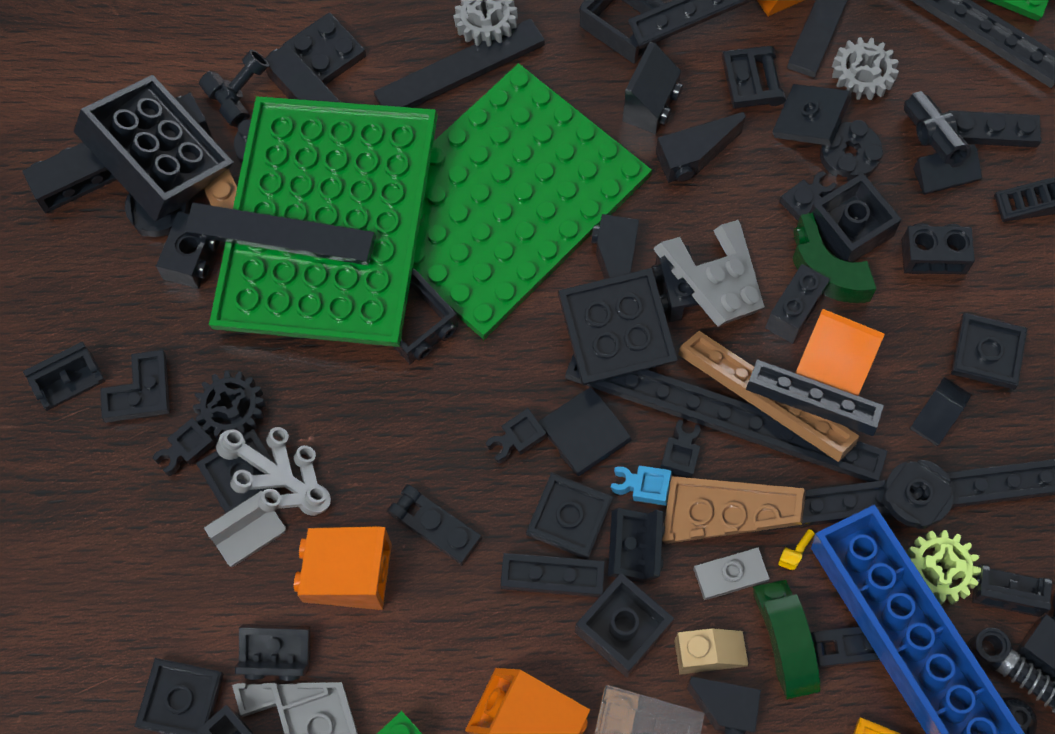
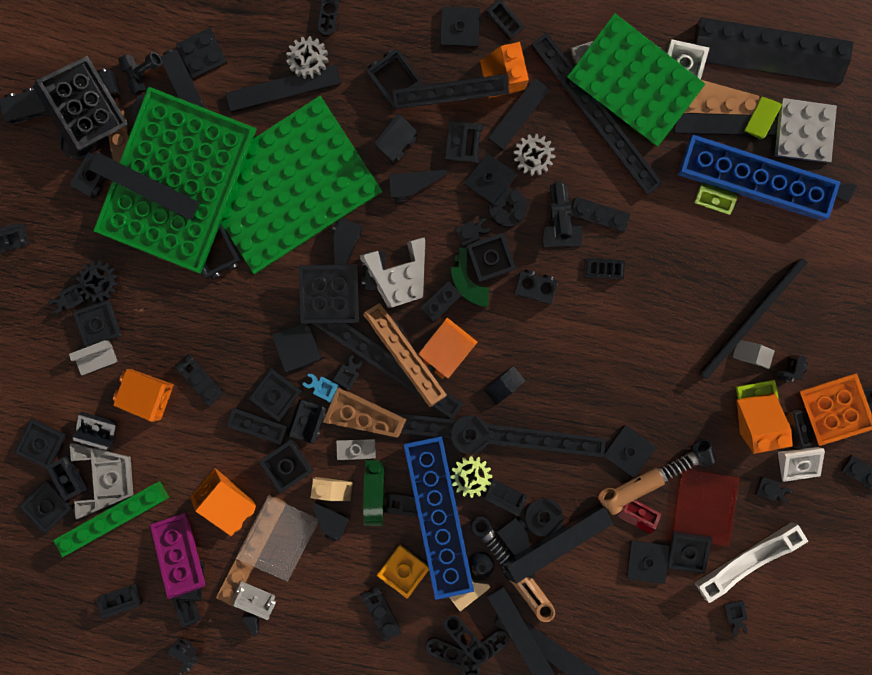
camera: 10 degrees right, 20 degrees up
(146, 395) = (50, 262): black plate -> none
(276, 474) = (116, 332): light grey plant -> none
(521, 433) = (259, 339): black plate -> none
(791, 558) = (391, 449): yellow hand -> none
(815, 397) = (427, 366): black plate -> none
(989, 351) = (544, 357): black plate -> none

